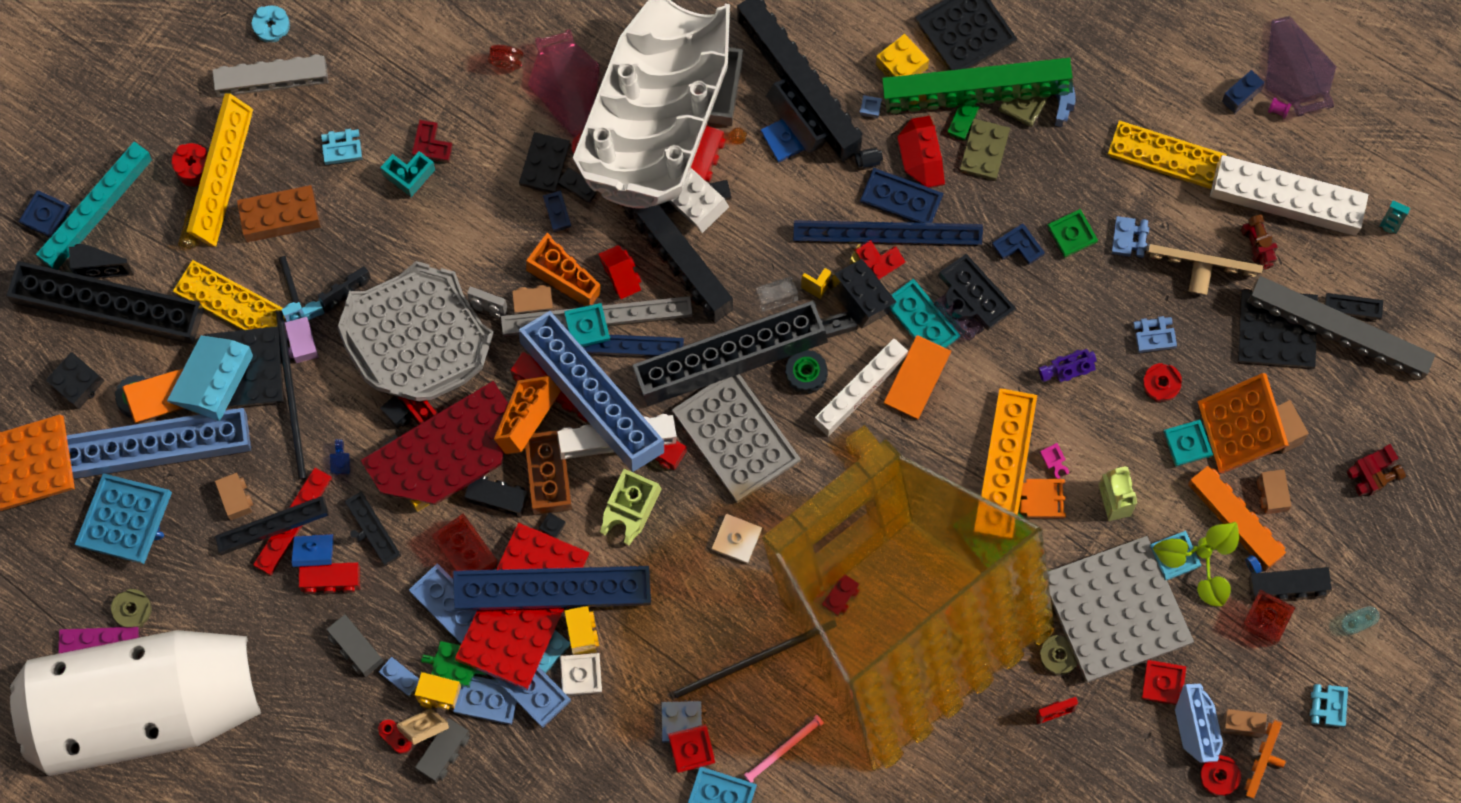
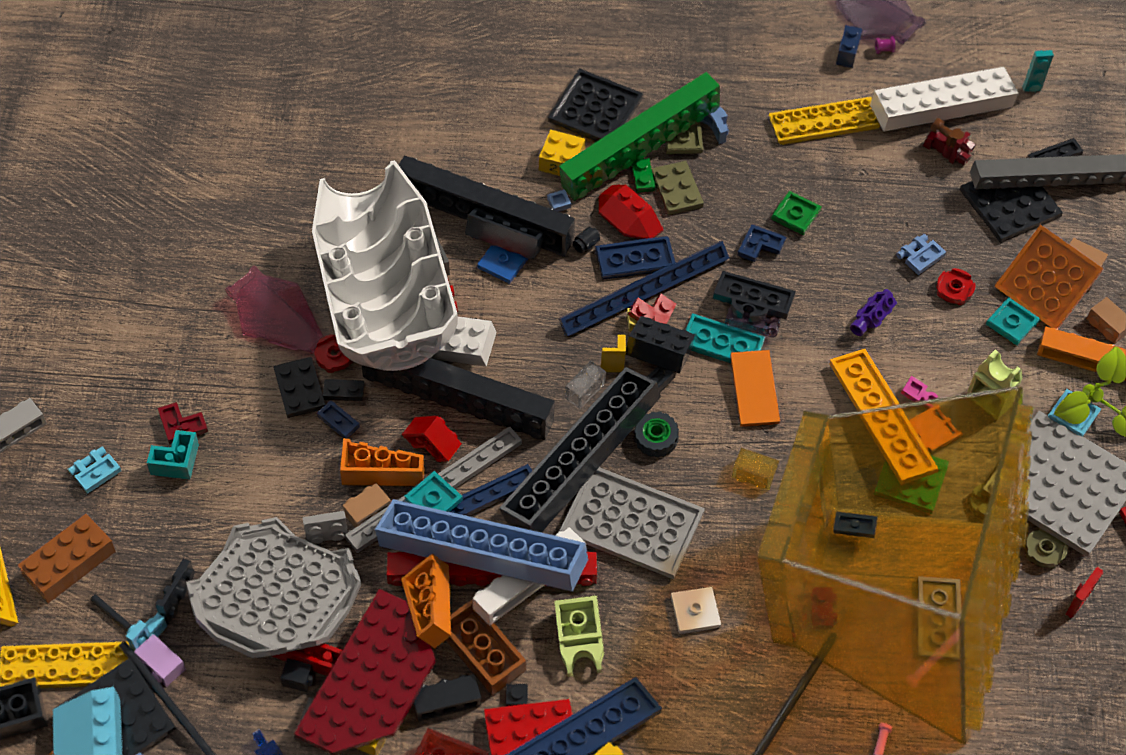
camera: 35 degrees left, 15 degrees down
(505, 57) = (207, 316): clear red head -> none
(737, 136) = (460, 279): clear orange plate -> none
(860, 387) = (713, 422): white brick -> none
(910, 545) = (855, 524): none -> plate
(1123, 237) = (839, 197): medium blue plate -> none
(1203, 265) = (919, 179): tan plate -> none

